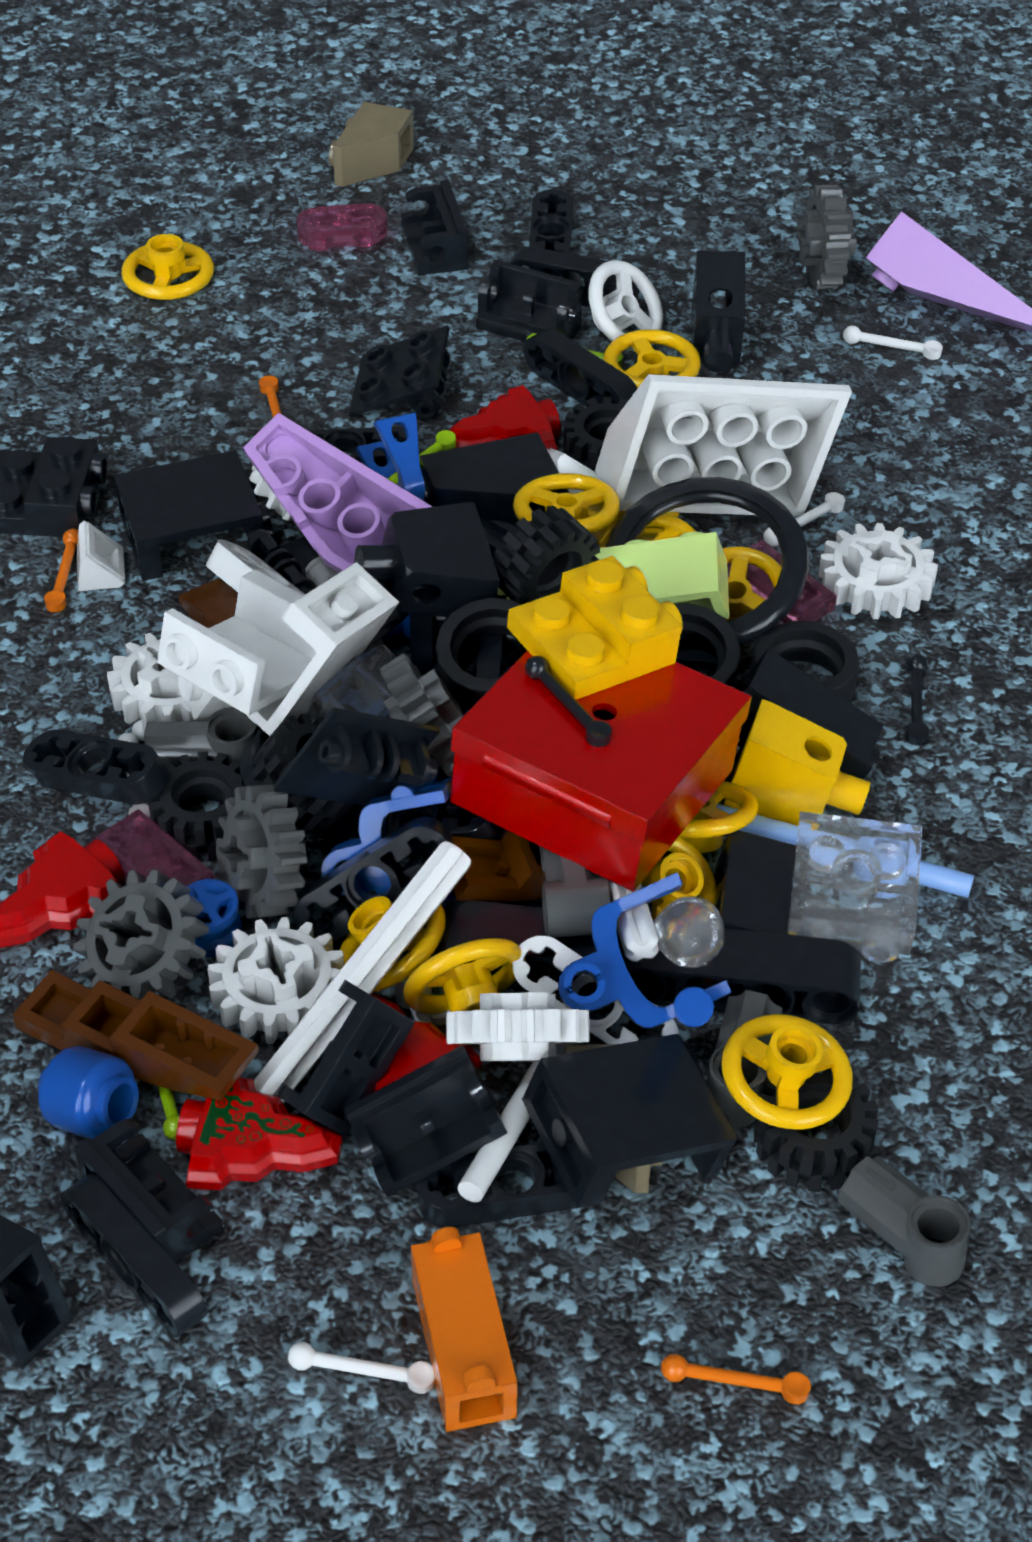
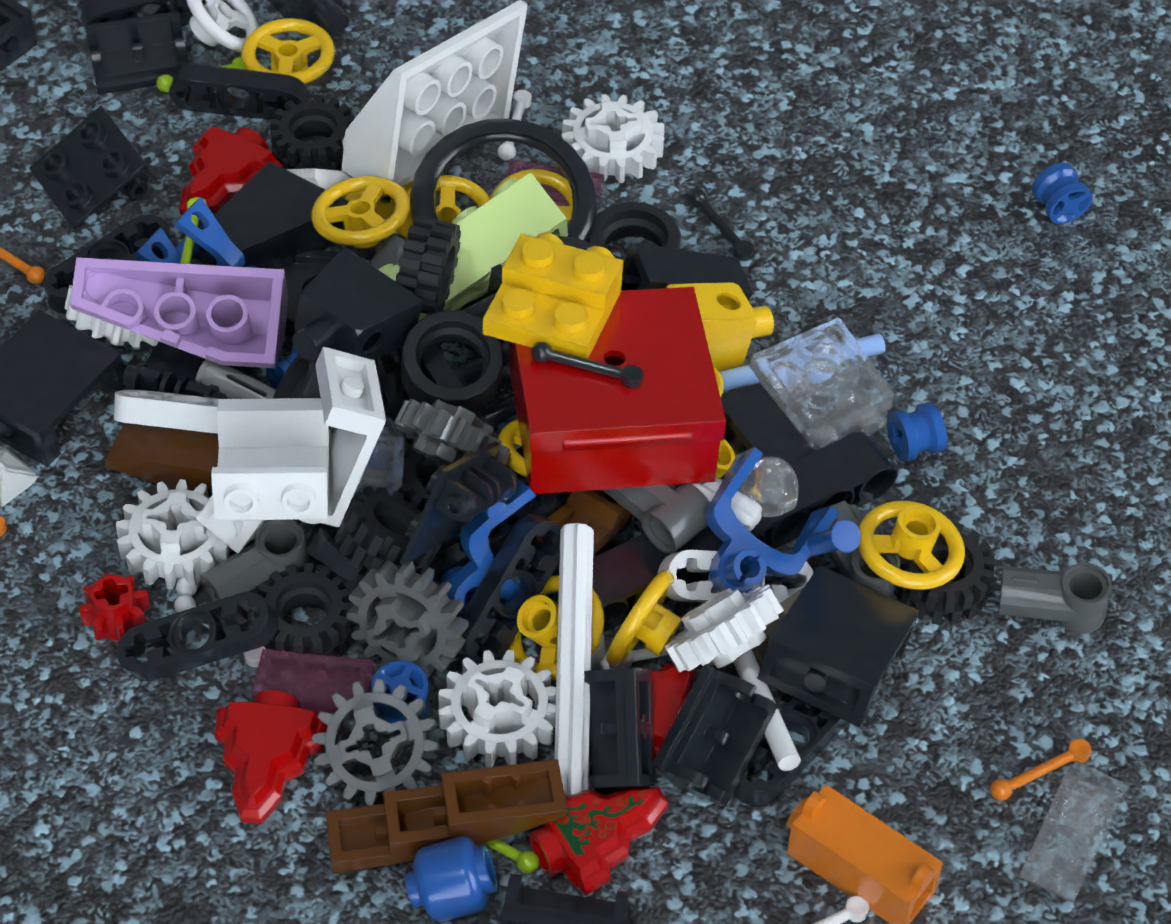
camera: 40 degrees left, 5 degrees up
(64, 705) = (113, 606): none -> red gear
(701, 1452) = (1074, 831): none -> clear slope
(917, 981) = (916, 431): none -> blue wheel

